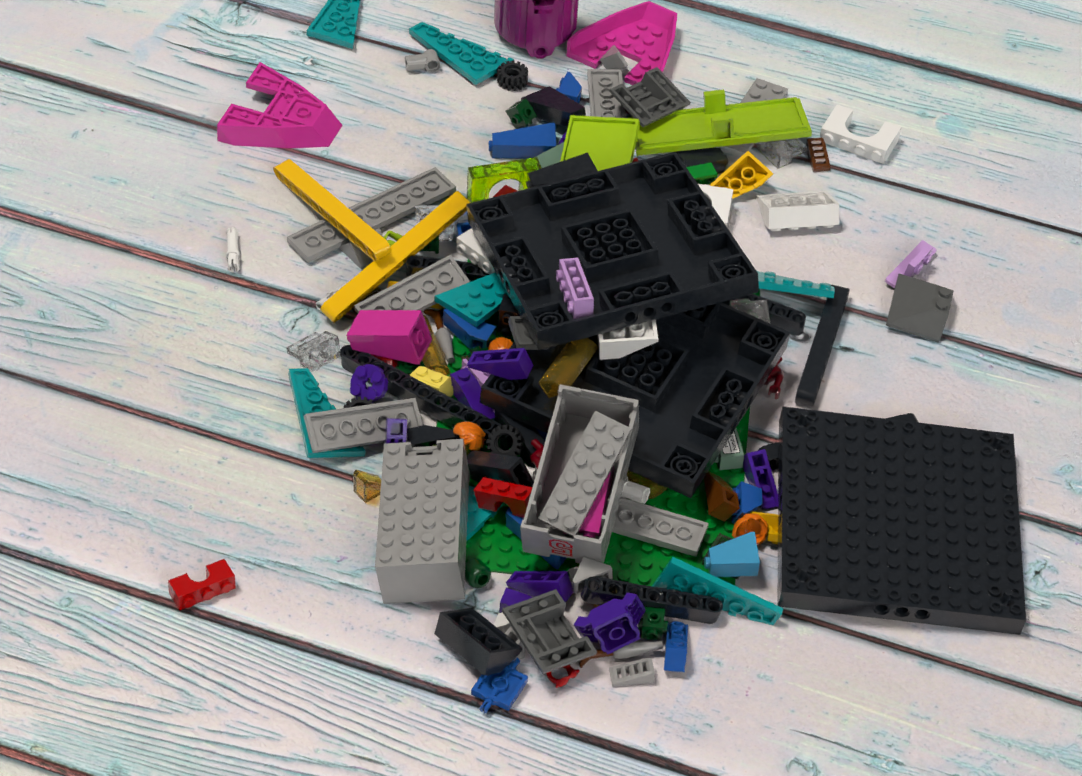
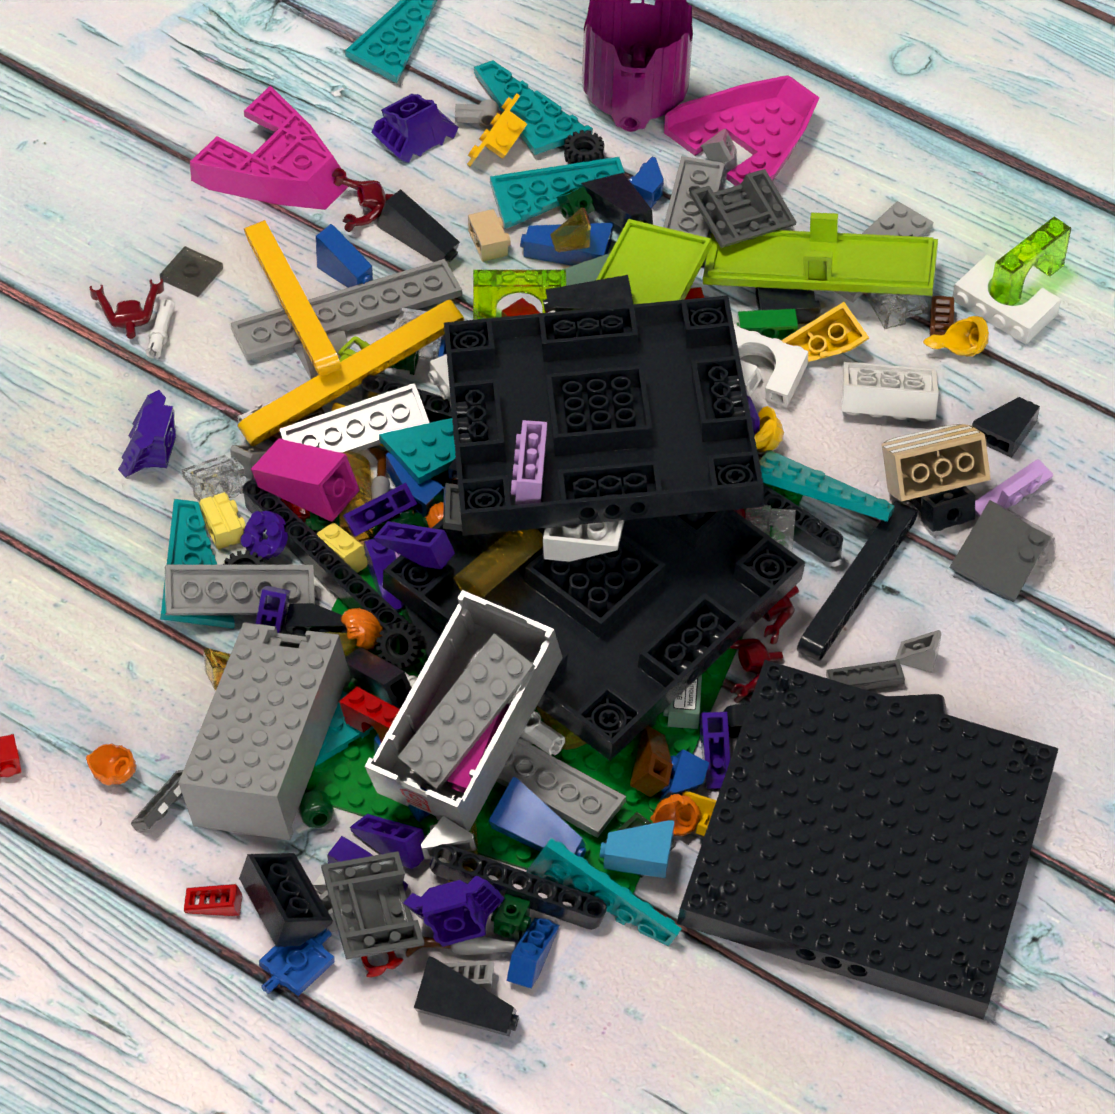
camera: 15 degrees right, 5 degrees up
(203, 242) = (129, 312): none -> dark red piece
(241, 205) = (191, 271): none -> clear smoke tile
(253, 326) = (150, 436): none -> dark purple slope
(308, 568) = (111, 764): none -> orange hair
(331, 379) = (222, 520): none -> light yellow brick
(336, 329) = (247, 457): none -> light grey slope
(355, 587) = (158, 805): none -> dark grey plate
(357, 178) = (341, 259): none -> blue slope
(362, 130) = (369, 195): none -> dark red piece
(377, 76) = (413, 126): none -> dark purple slope
(407, 148) = (416, 228): none -> black slope
(418, 647) = (223, 908): none -> red slope
(448, 71) = (503, 133): none -> yellow bracket
(454, 349) = (380, 509): none -> dark purple slope
(461, 145) = (488, 235): none -> tan brick
(488, 109) = (535, 191): none -> teal wing
(530, 132) = (573, 233): none -> clear yellow slope
(637, 689) = (458, 999): none -> black slope
(644, 551) = (531, 821): none -> slope
(767, 411) = (751, 657): none -> dark red piece
(840, 163) = (963, 337): none -> yellow piece
(854, 250) = (935, 461): none -> tan brick
(864, 407) = (869, 675): none -> dark grey plate
(867, 282) = (946, 508): none -> black brick
(875, 97) = (1042, 249): none -> clear neon green arch
(886, 386) = (920, 651): none -> light grey slope
(891, 221) = (1008, 425): none -> black slope

